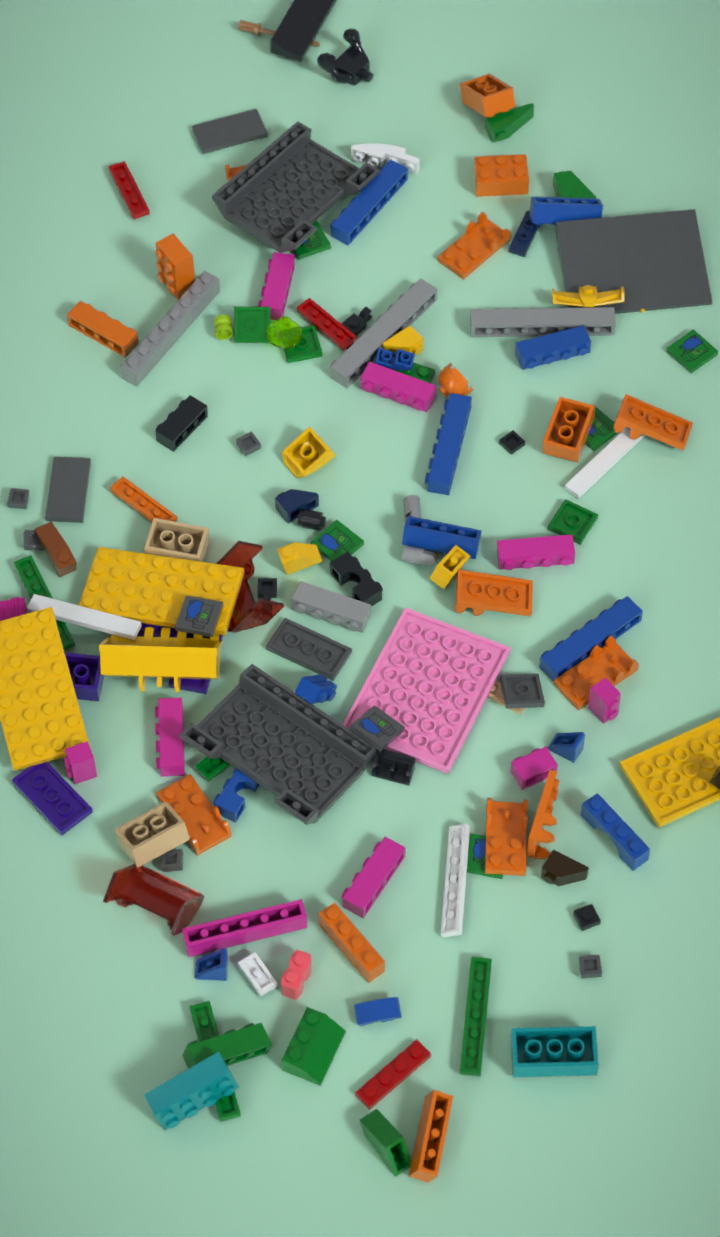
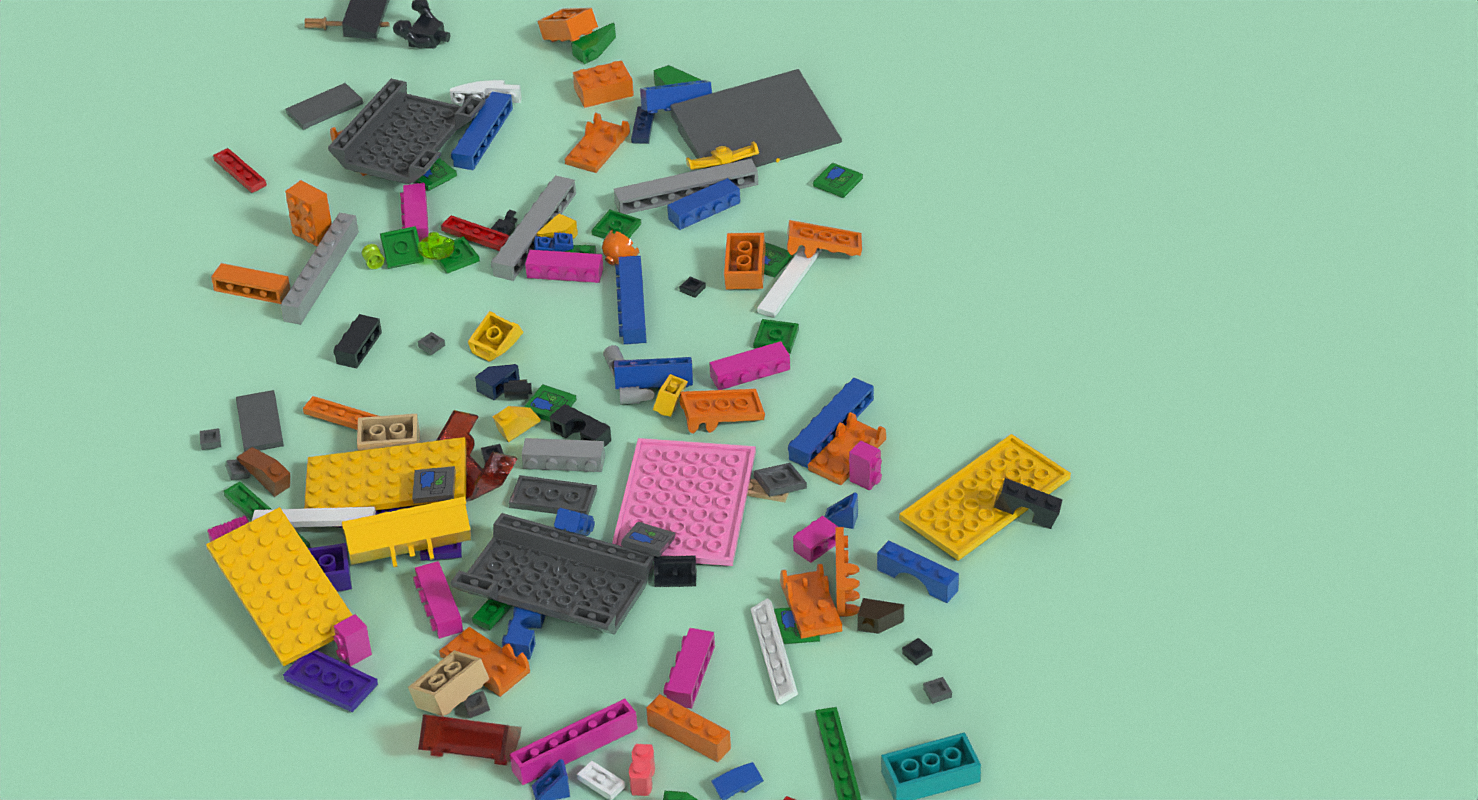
camera: 15 degrees left, 15 degrees down
(462, 351) = (617, 222): none -> green tile

